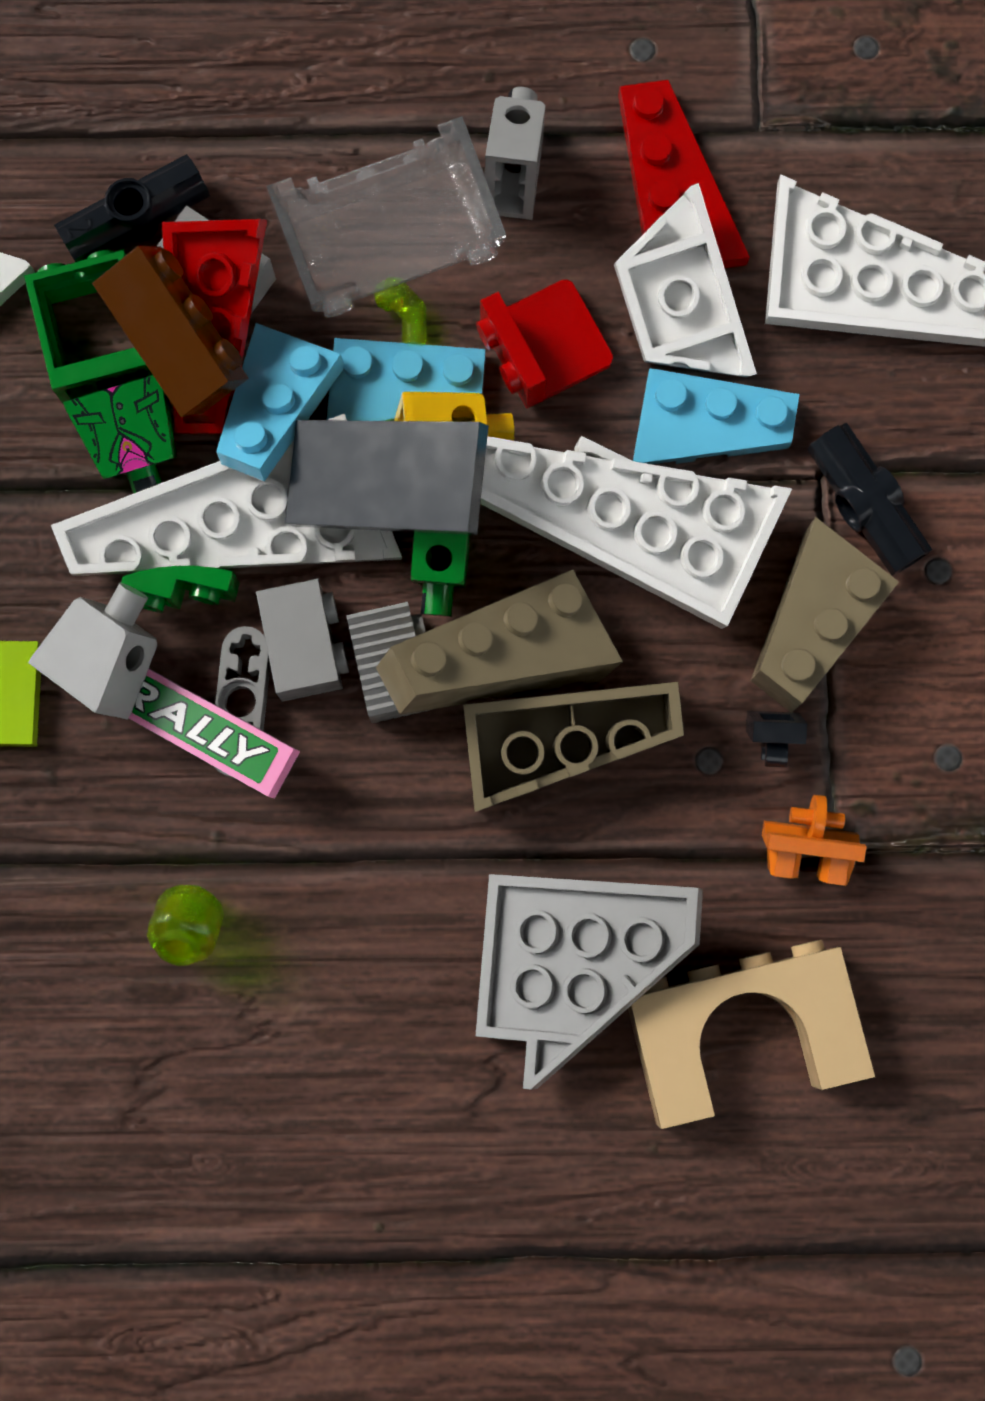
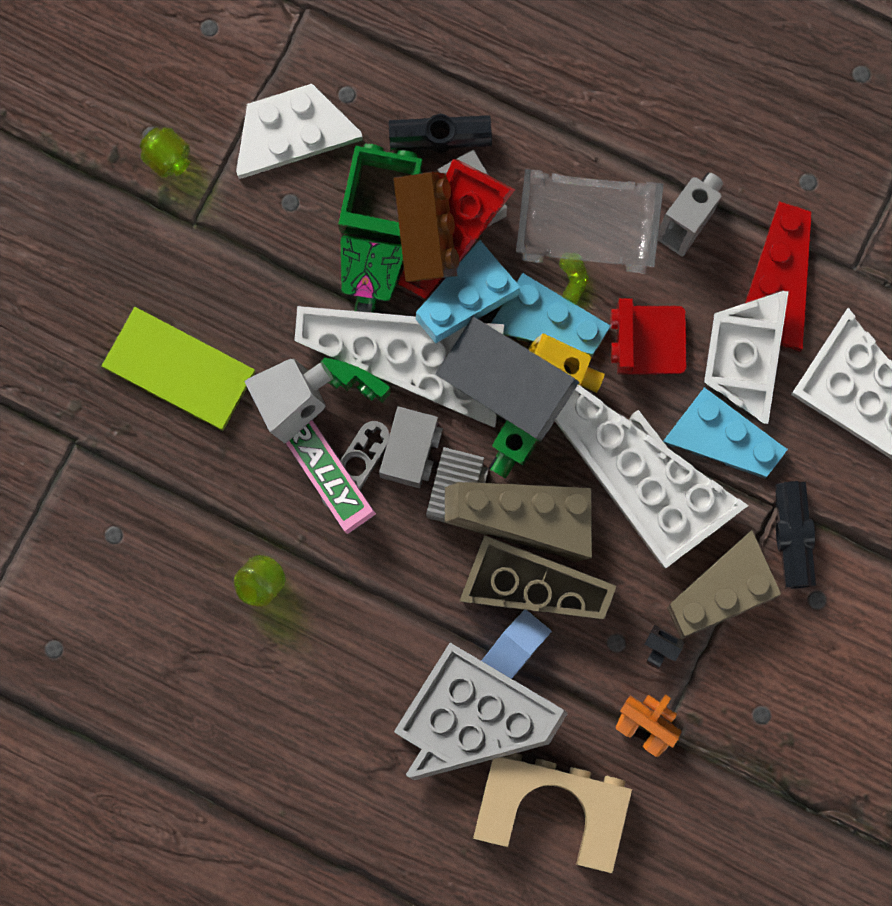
camera: 30 degrees right, 0 degrees up
(580, 831) = (517, 644): none -> light blue slope

